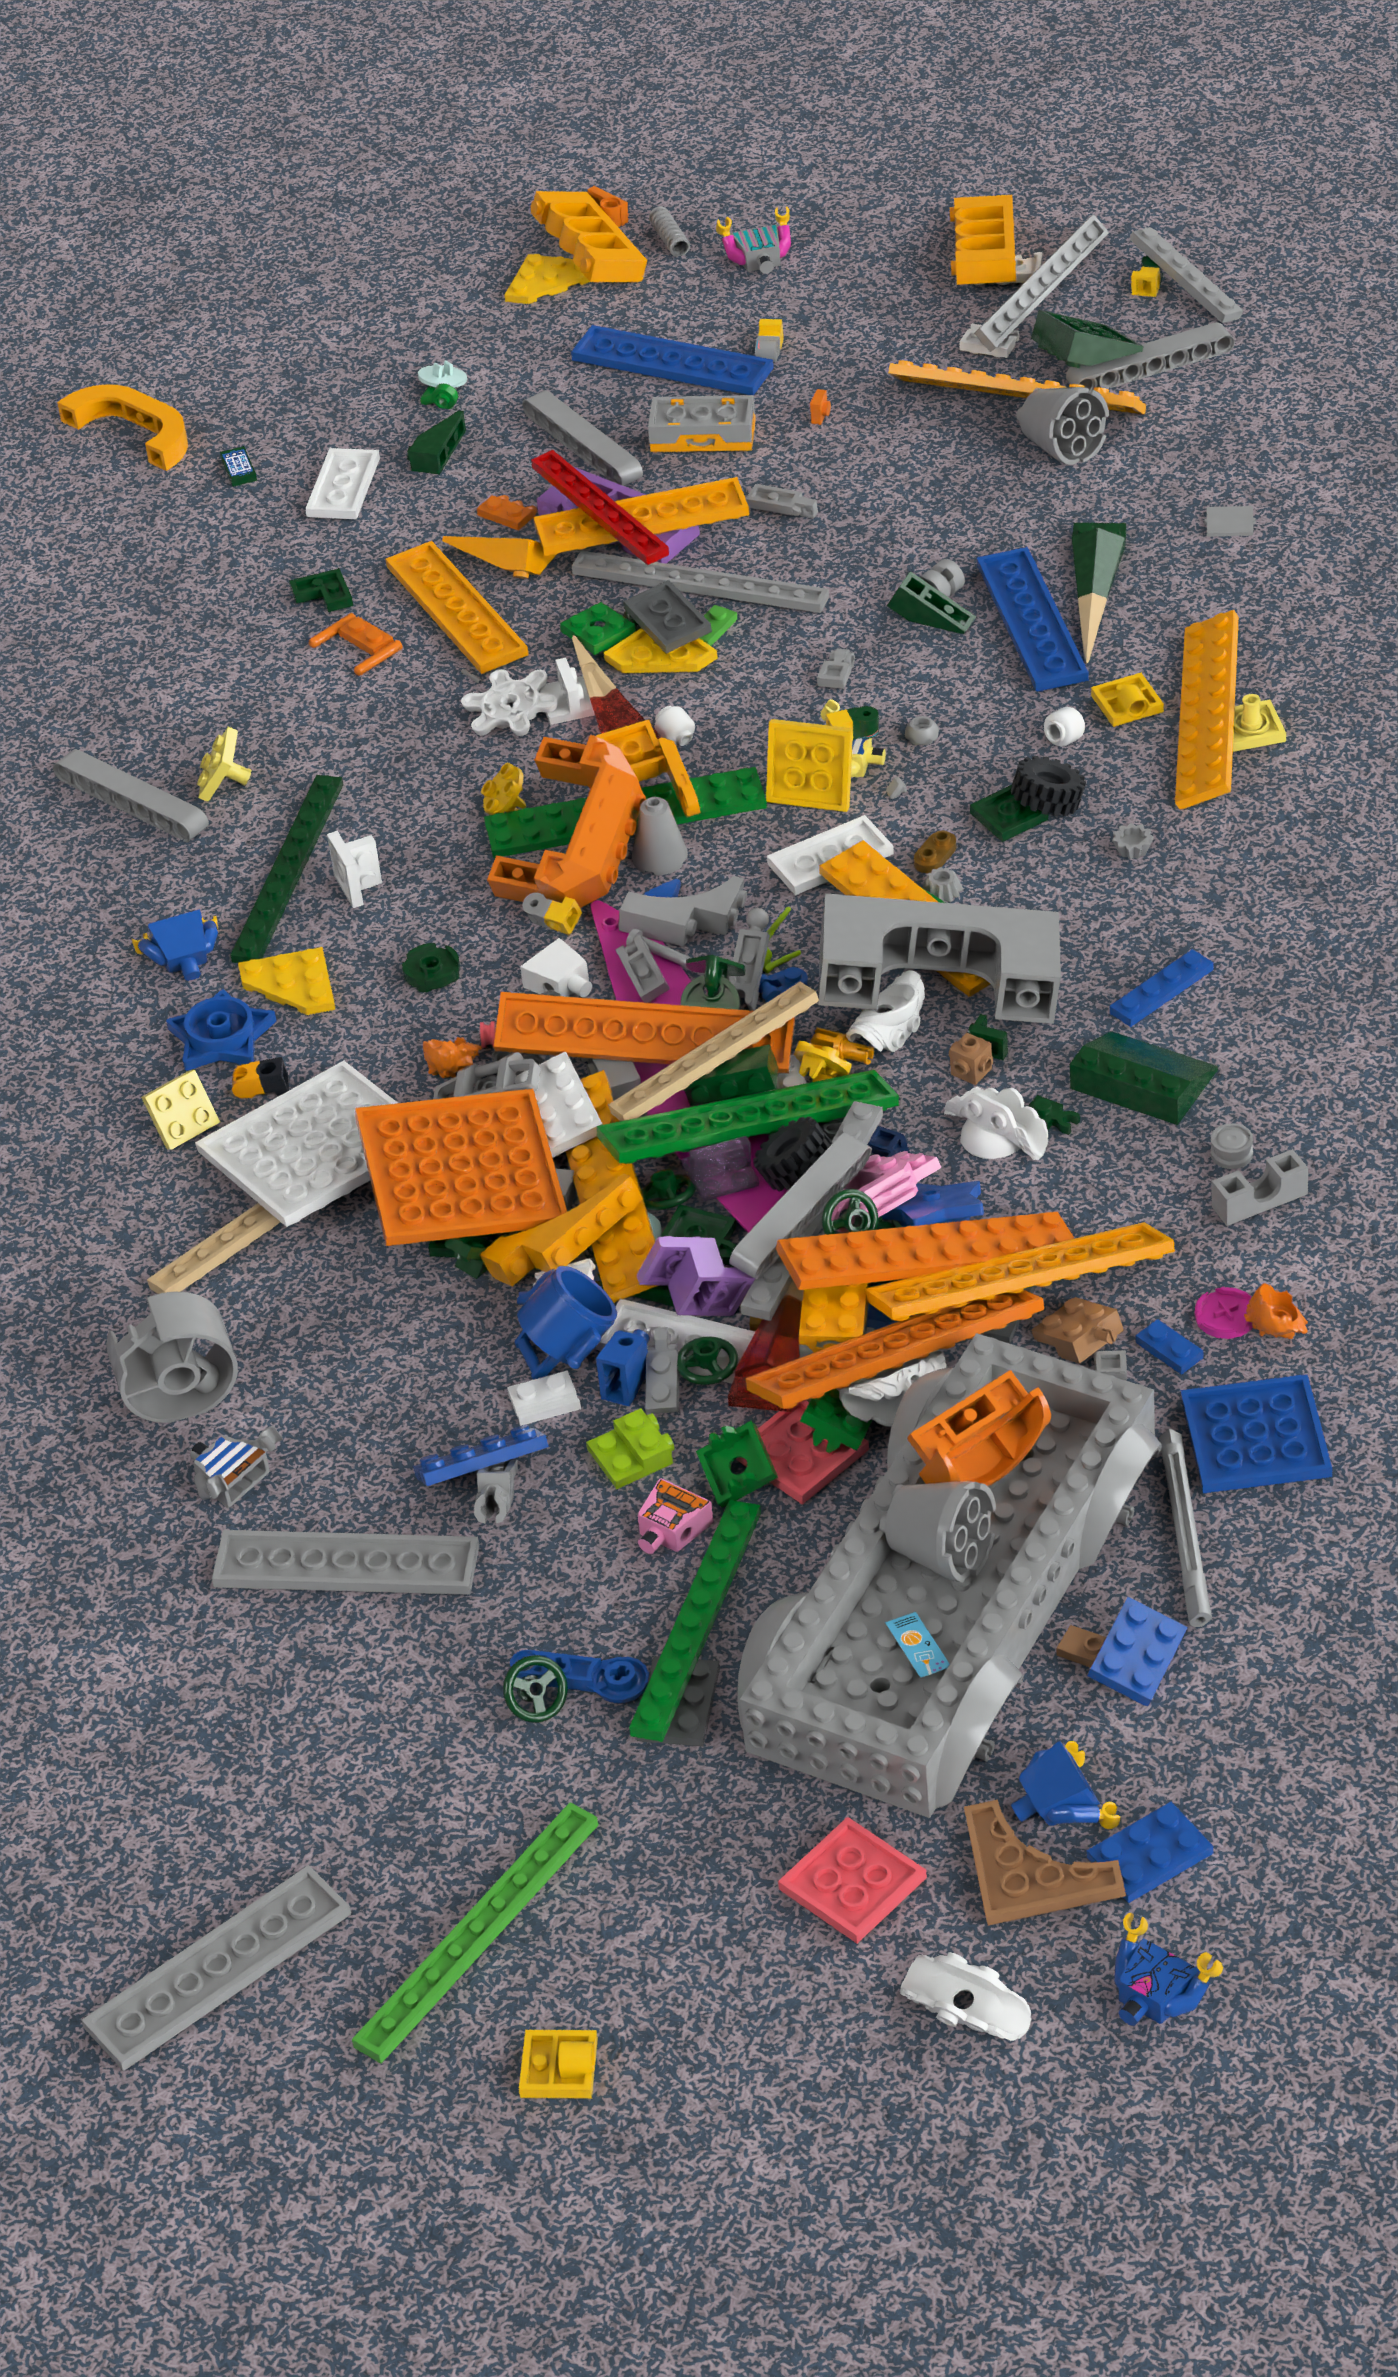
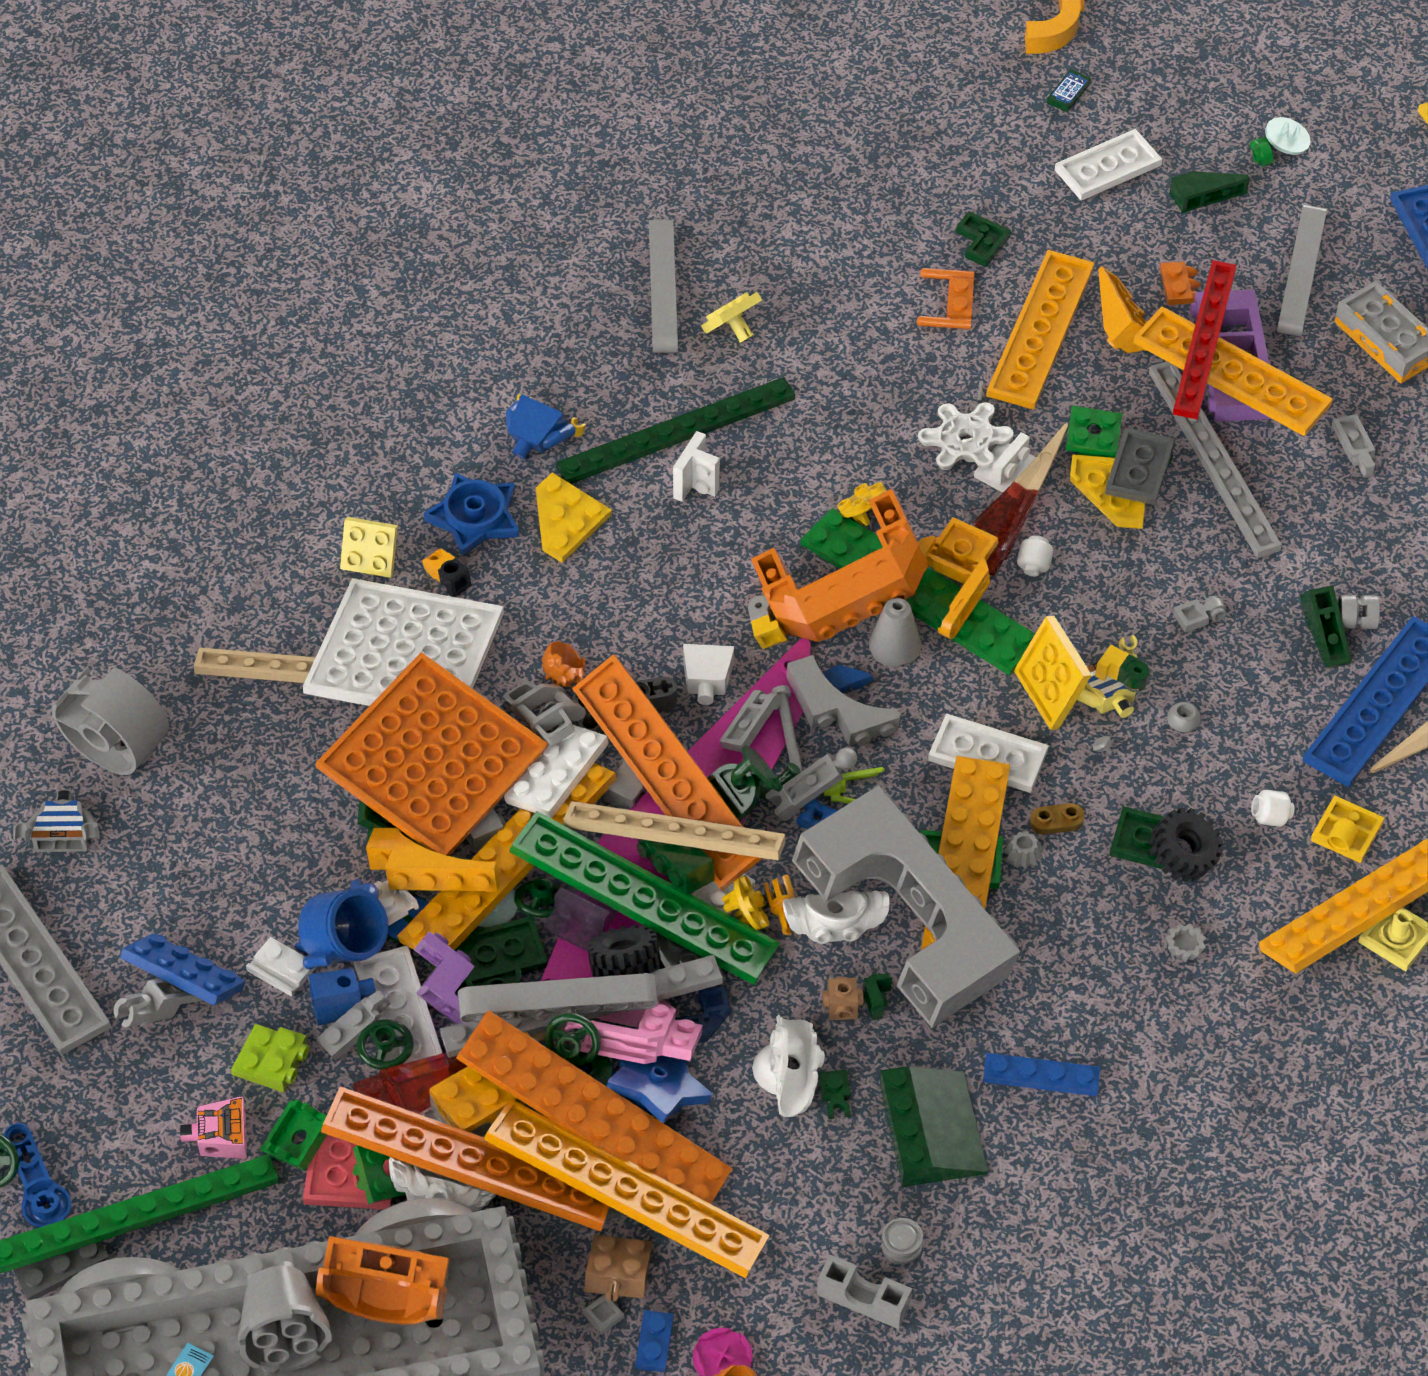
camera: 45 degrees right, 10 degrees up
(444, 967) = (651, 601): dark green plate -> none
(721, 620) = (1177, 500): bright green plate -> none

